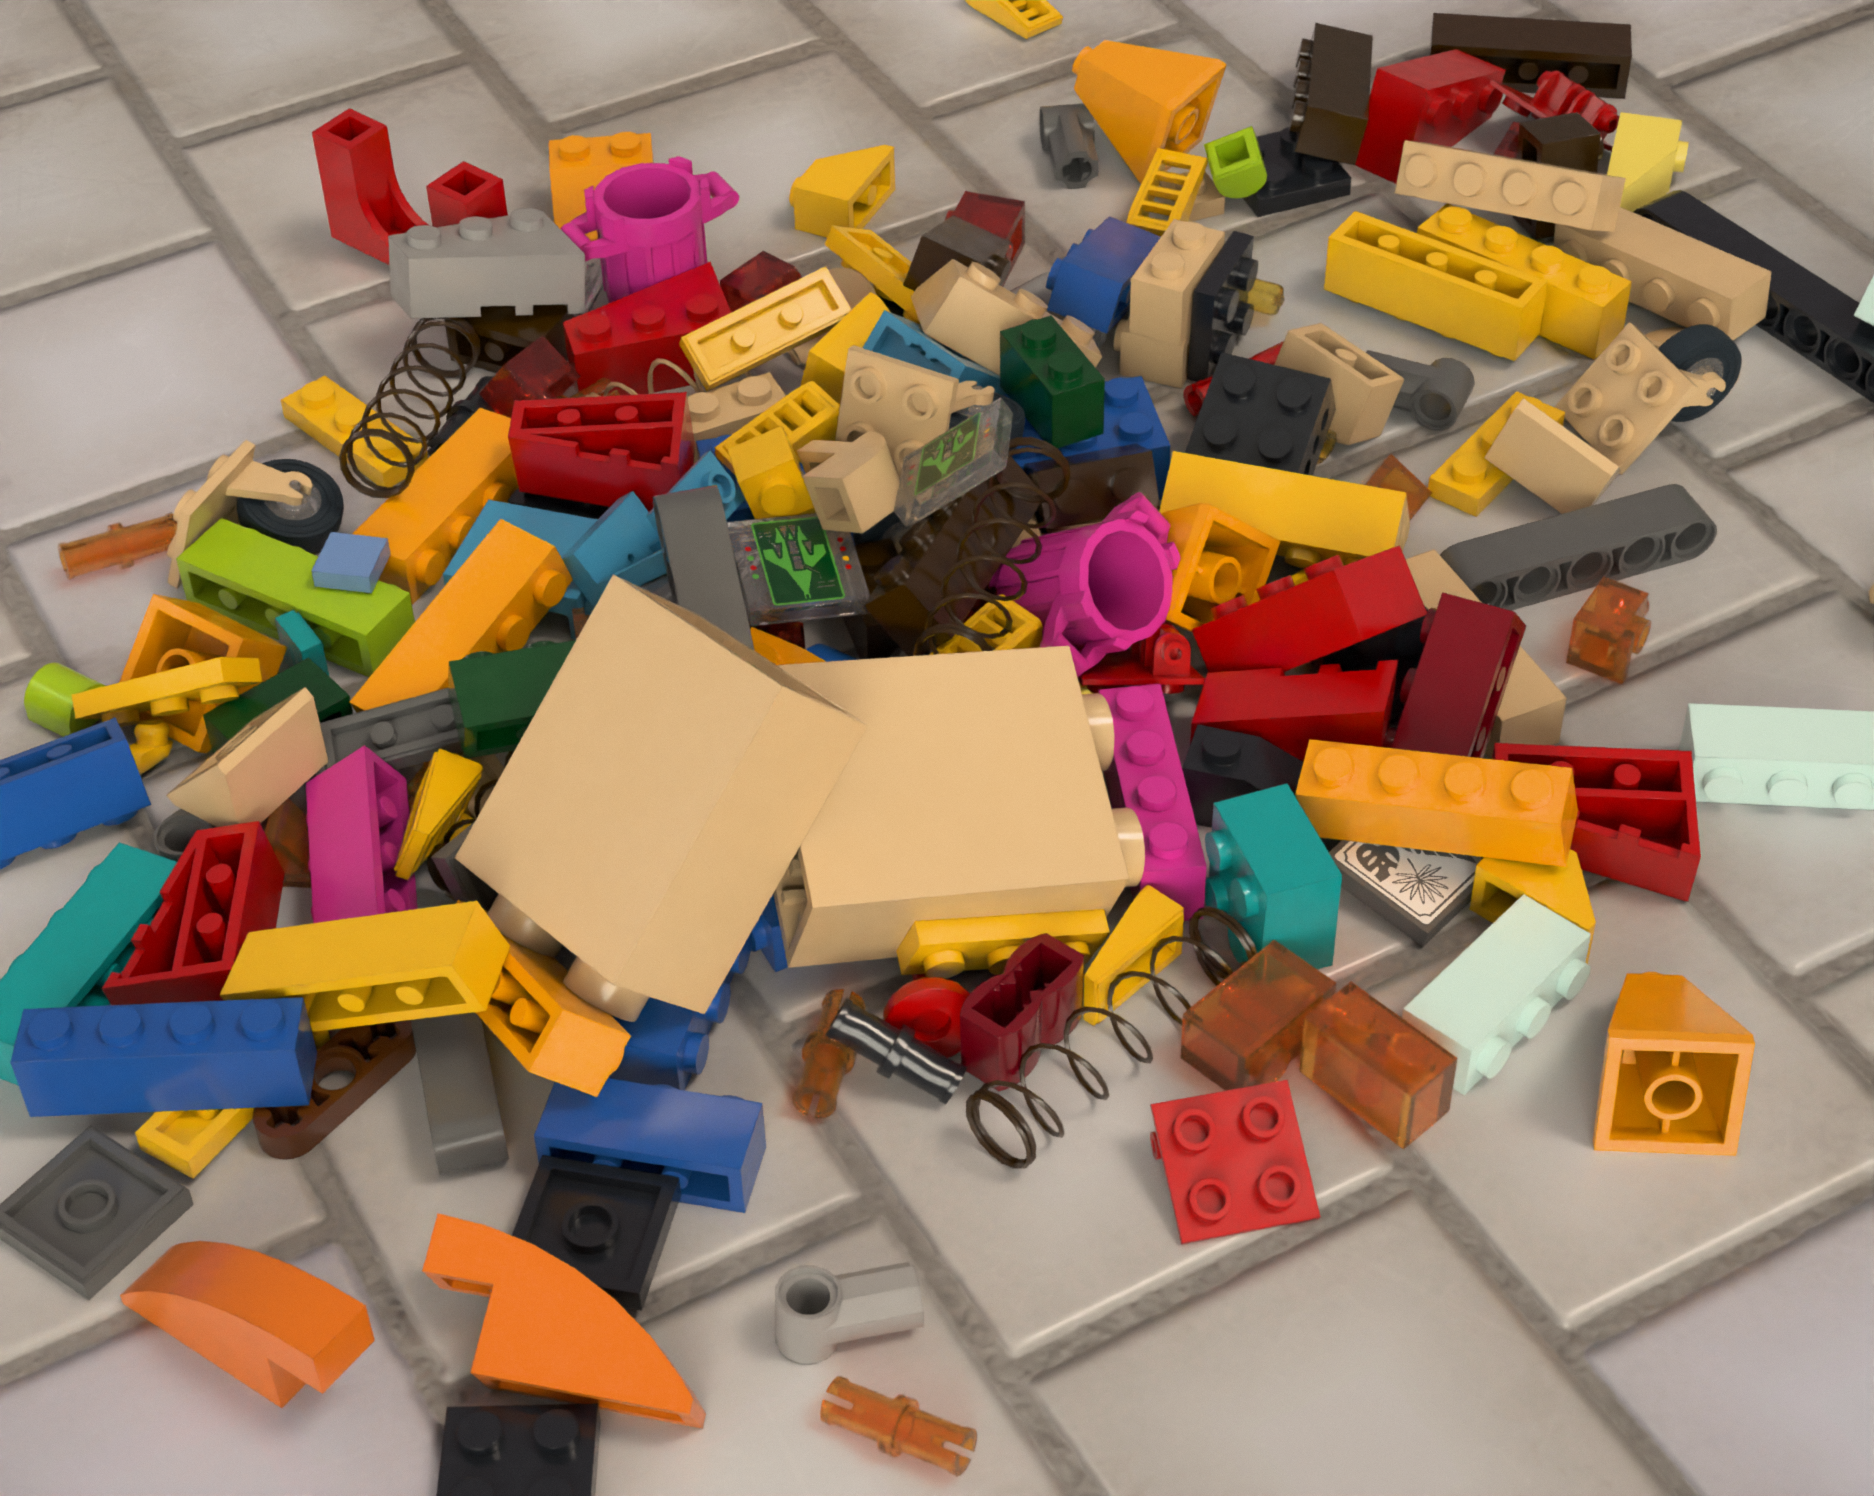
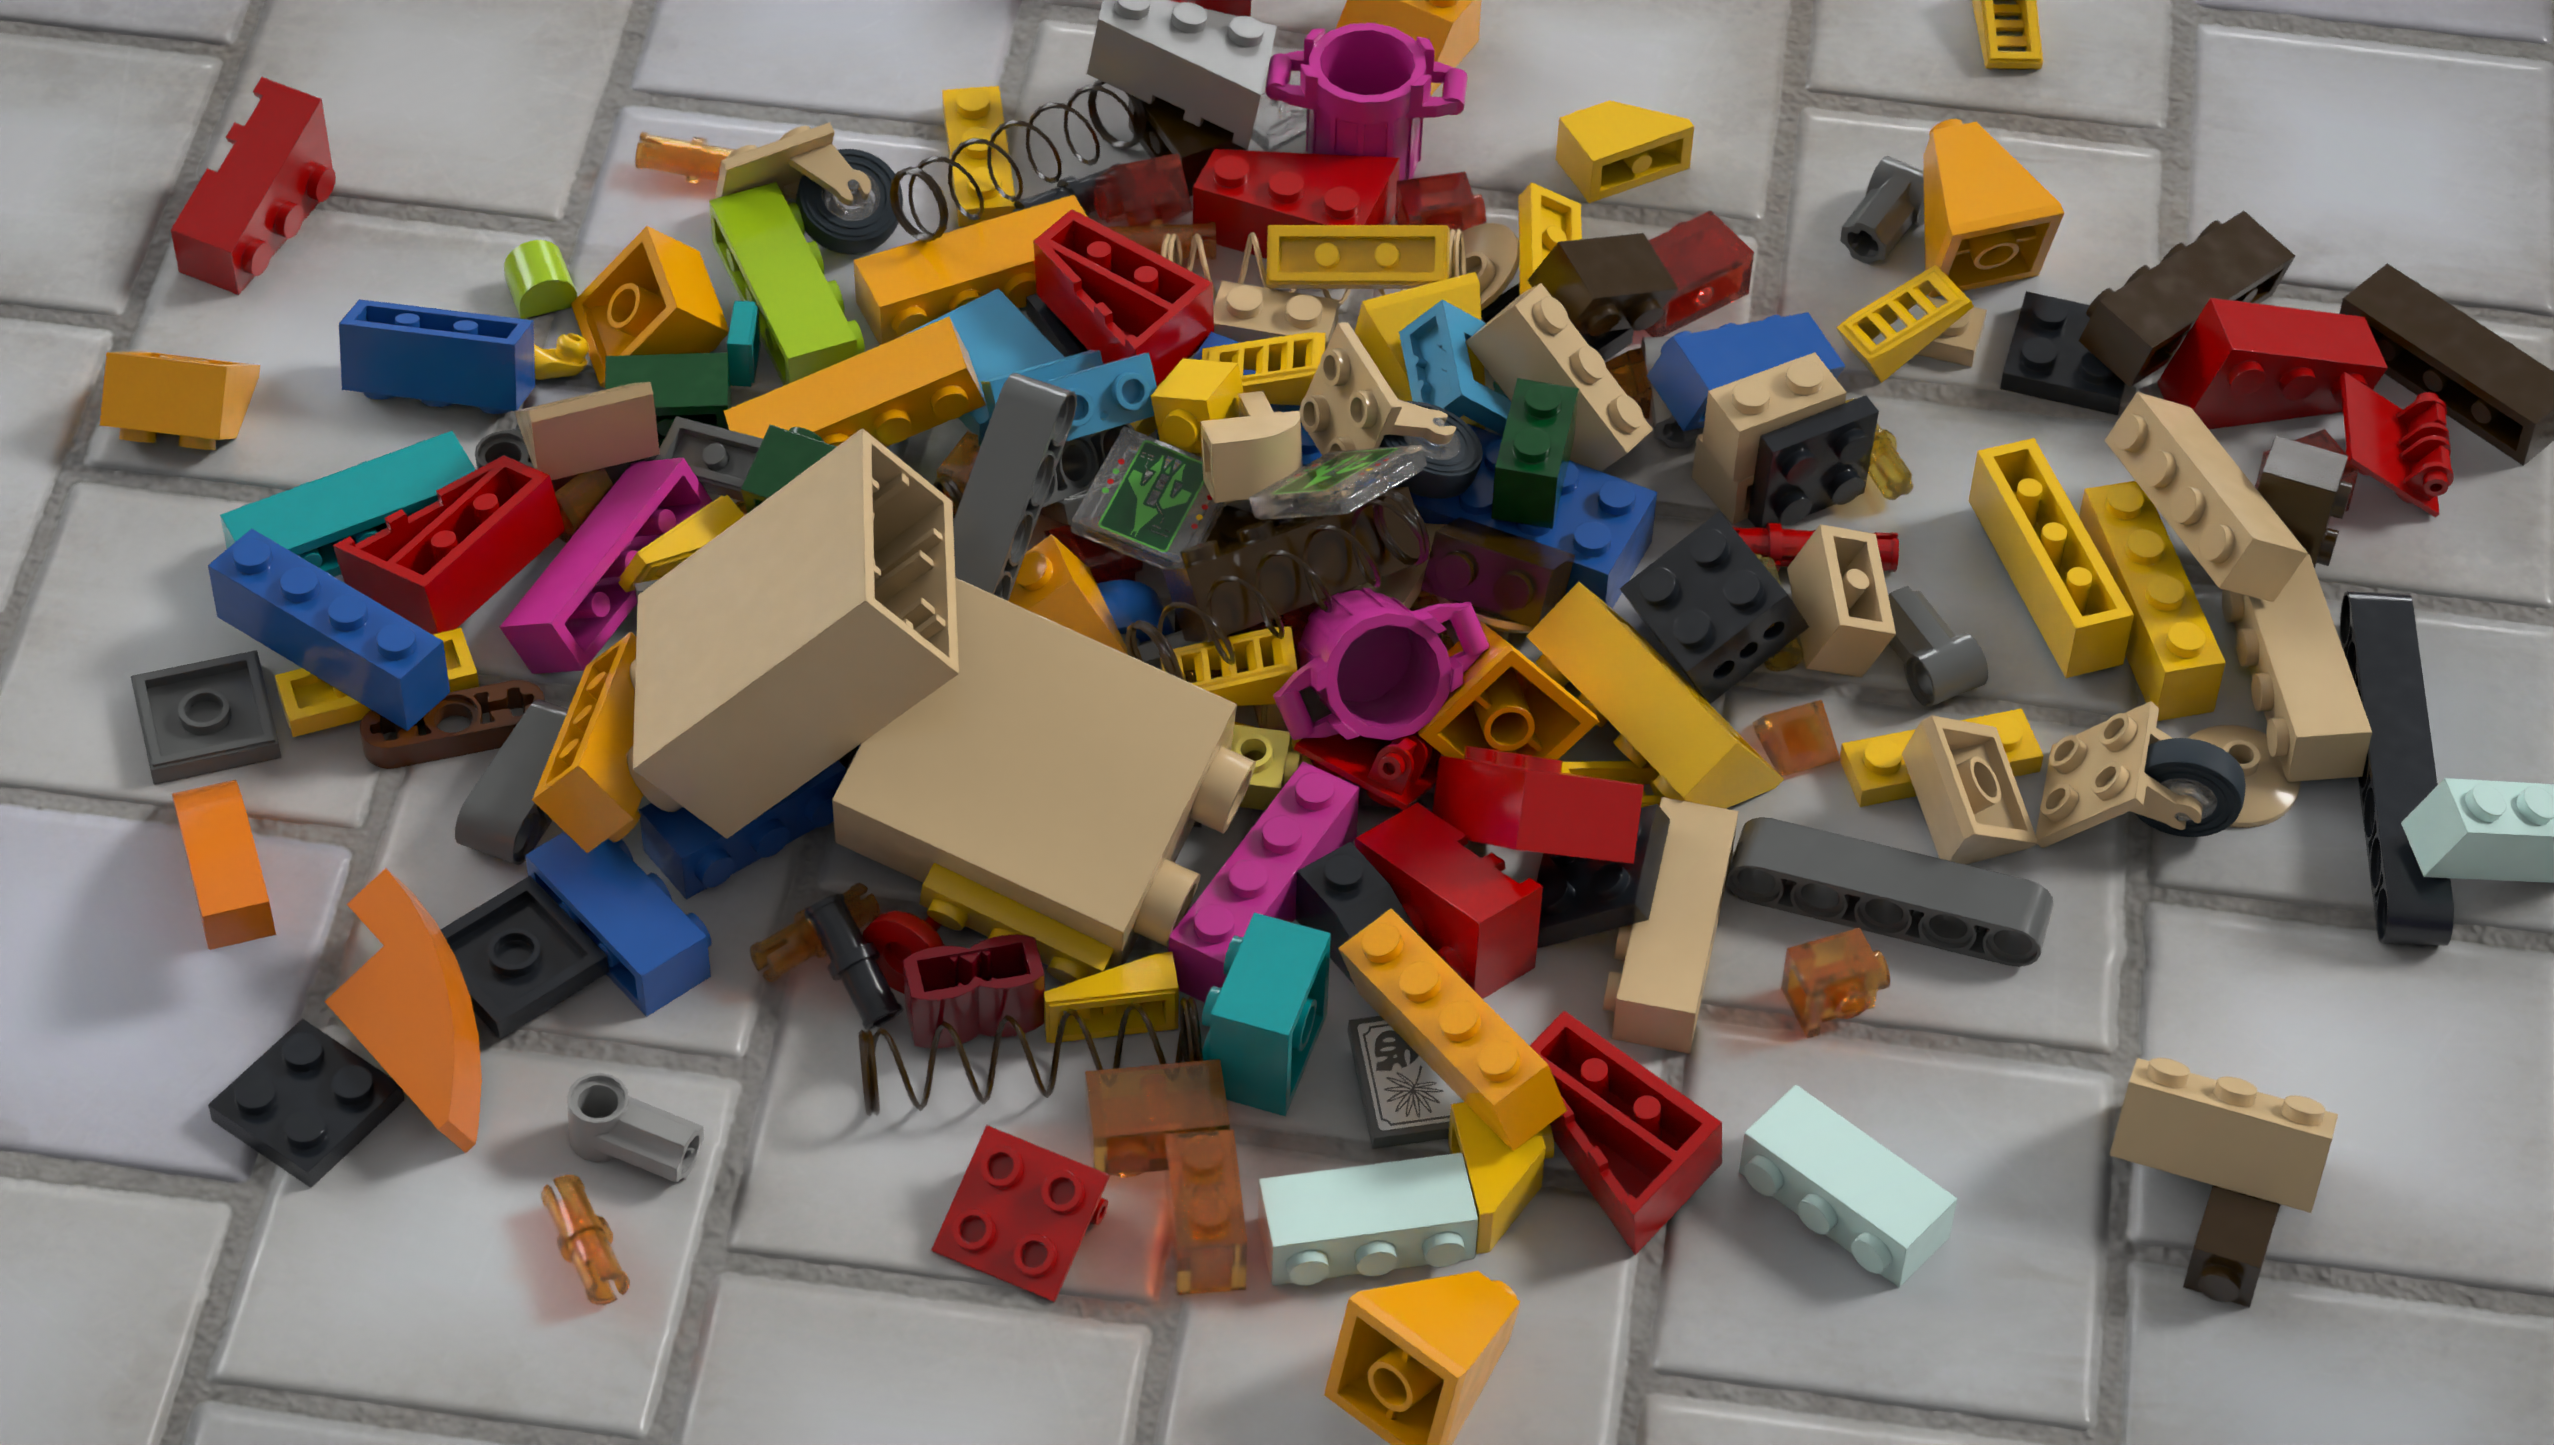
camera: 35 degrees right, 5 degrees up
(169, 690) = (596, 321): yellow plate -> none
(351, 562) = (829, 284): medium blue tile -> none
(376, 966) = (509, 647): yellow brick -> none
(1236, 164) = (2002, 322): lime brick -> none
(1459, 678) = (1583, 947): dark red brick -> none
(1646, 155) = (2414, 549): light yellow slope -> none

